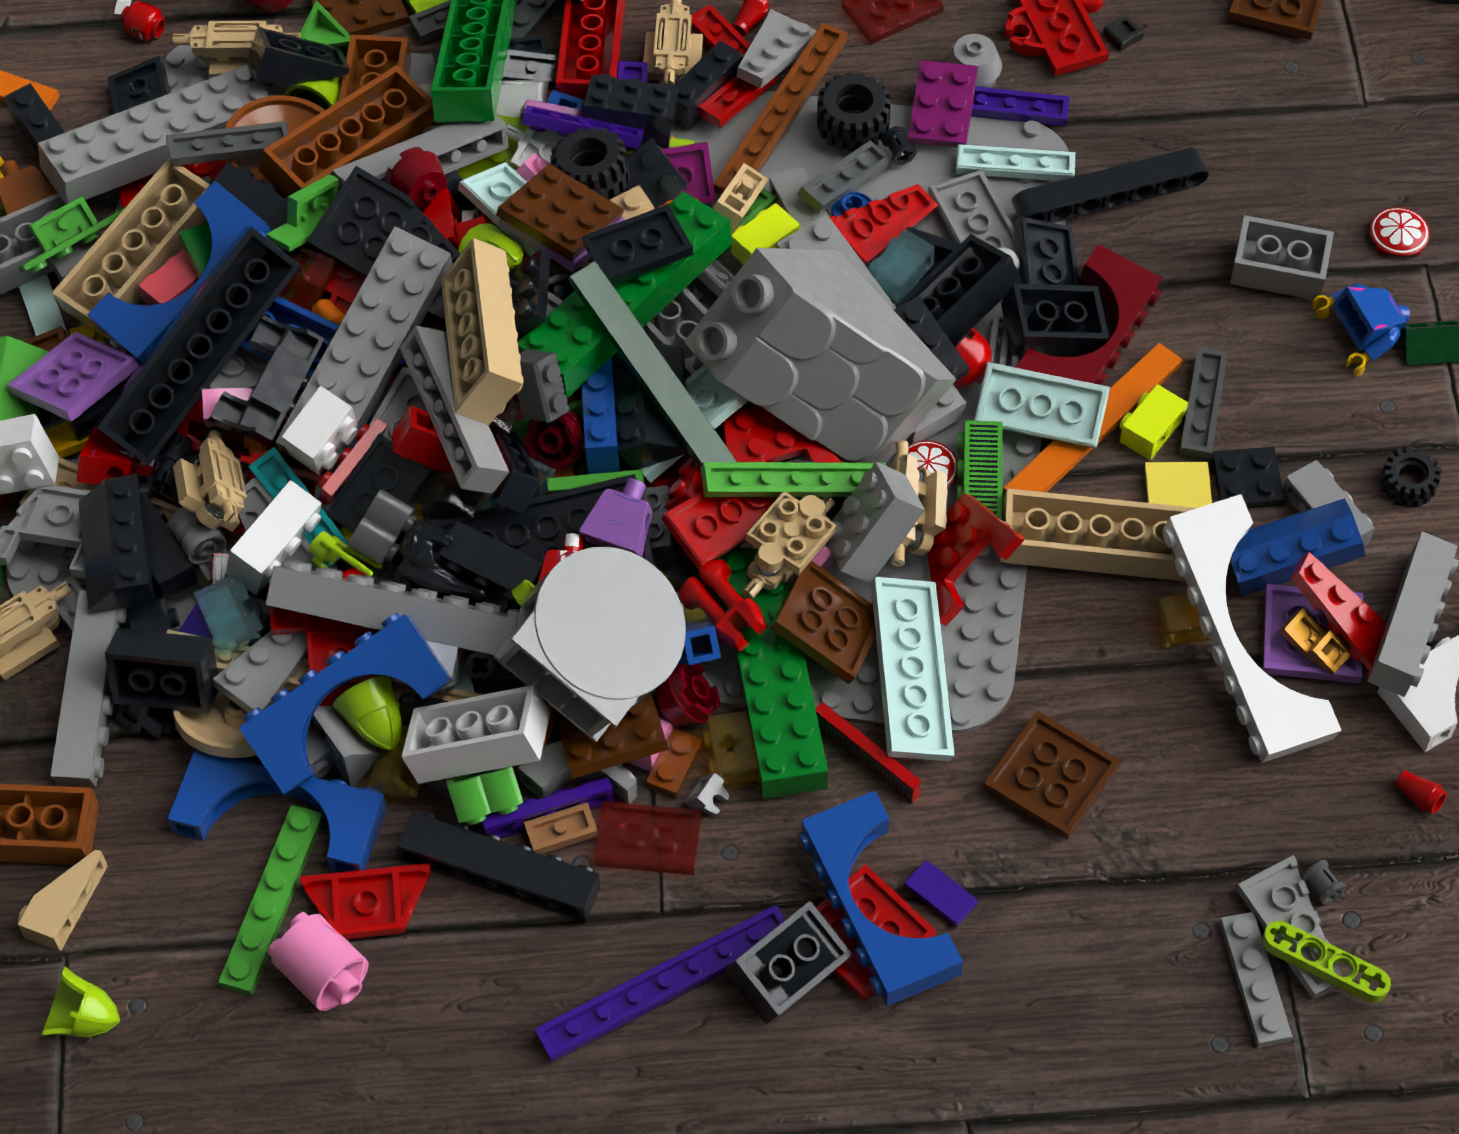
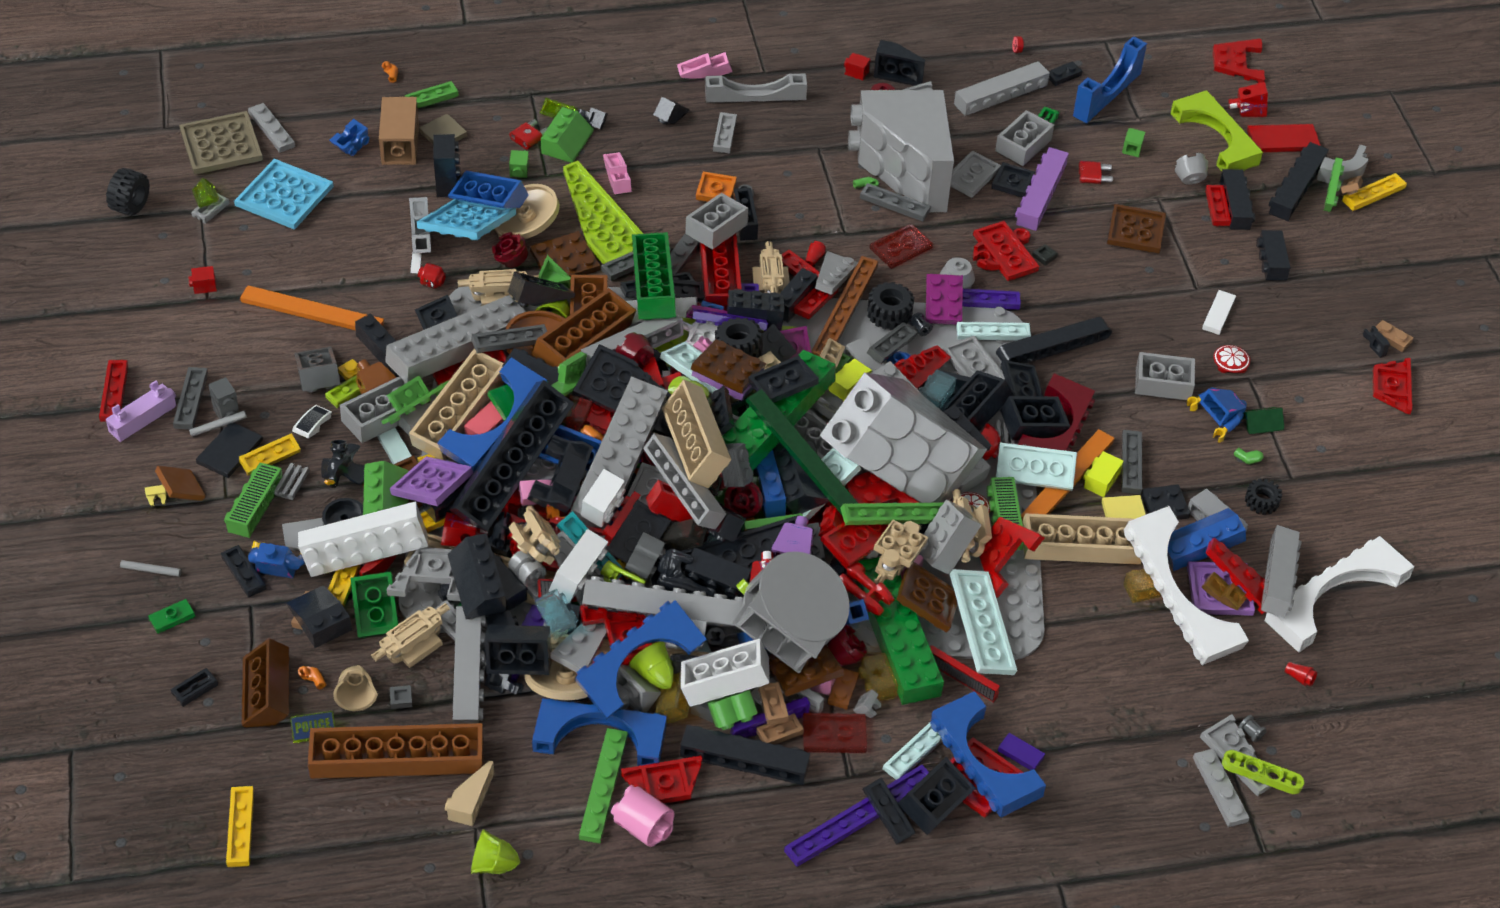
camera: 10 degrees left, 10 degrees down
(551, 787) = (773, 703): none -> medium nougat plate
(709, 981) = (888, 811): none -> black tile
(765, 882) = (912, 752): none -> light aqua tile
(1052, 775) = (1077, 679): reddish brown plate -> none
(1392, 148) = (1219, 312): none -> white tile
(1401, 406) = (1249, 457): none -> bright green arm

